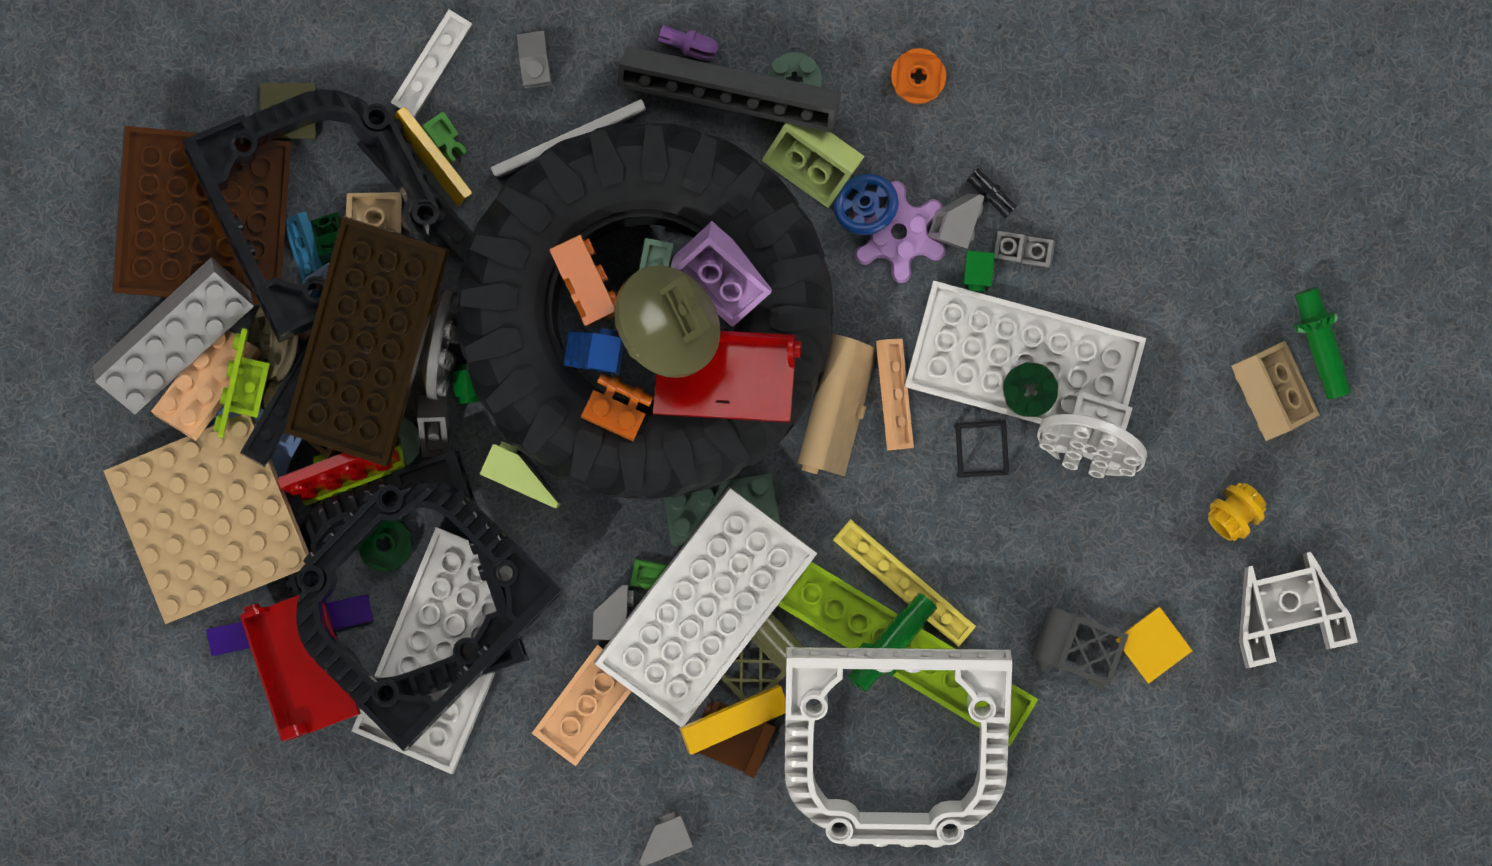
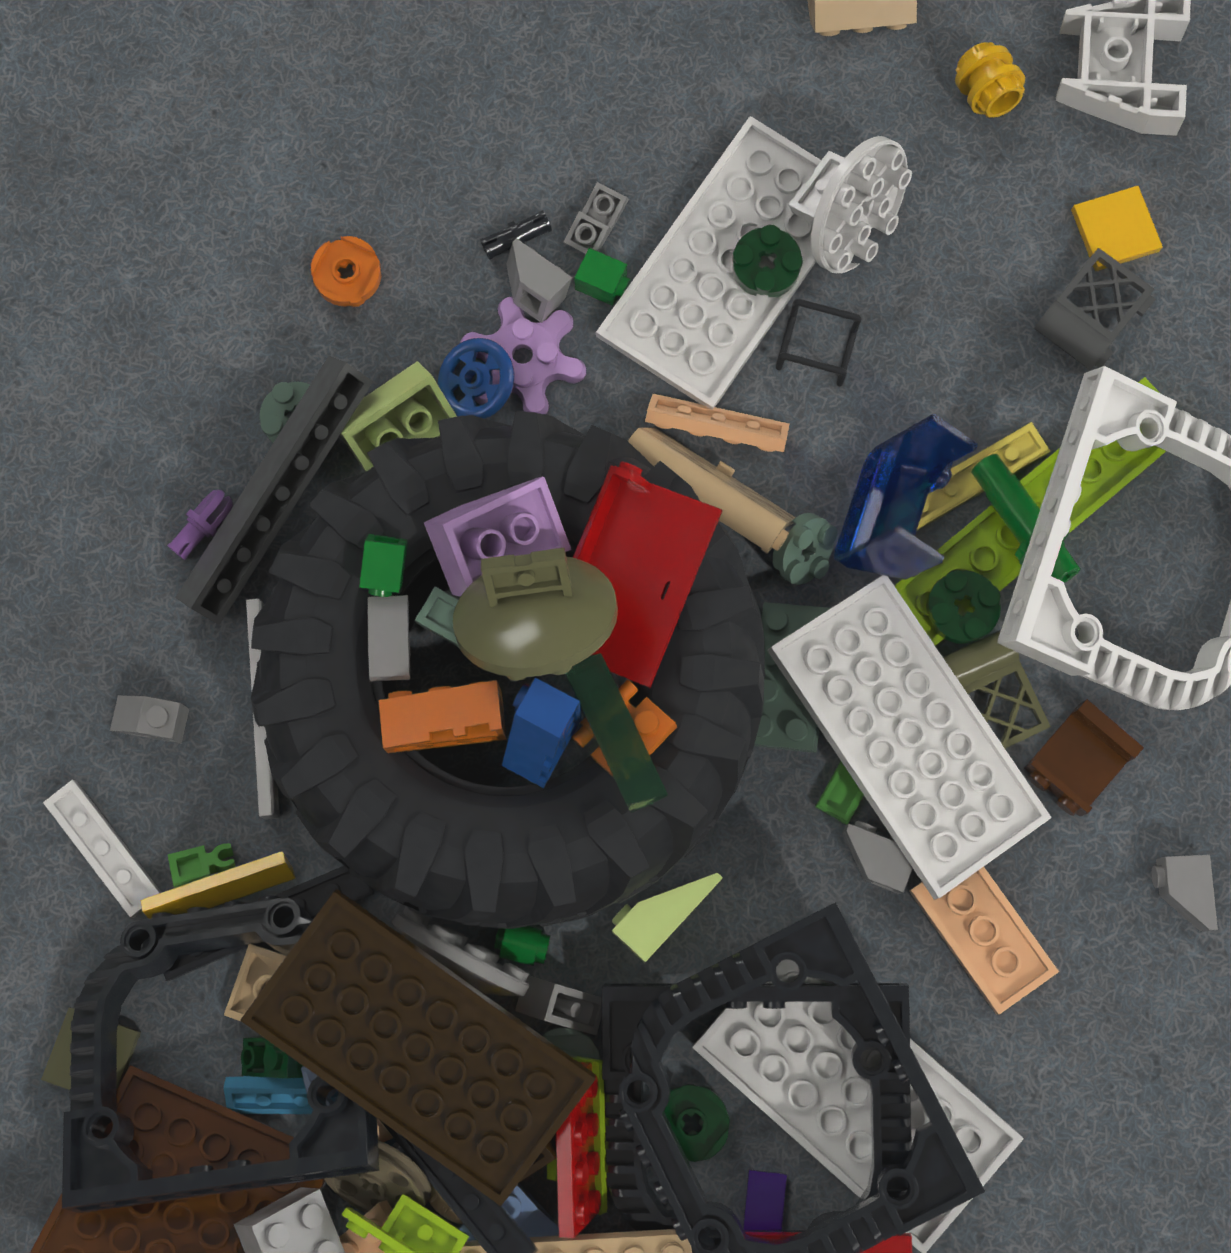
camera: 75 degrees left, 10 degrees down
(608, 404) = (616, 733): none -> clear green slope
(627, 224) = (388, 638): none -> light grey slope
(675, 203) = (383, 565): none -> green brick
(734, 719) = (1062, 748): yellow tile -> none
(805, 605) = (982, 597): none -> dark green plate
(817, 490) = (816, 538): none -> sand green plate
(873, 541) = (892, 496): none -> clear blue windscreen

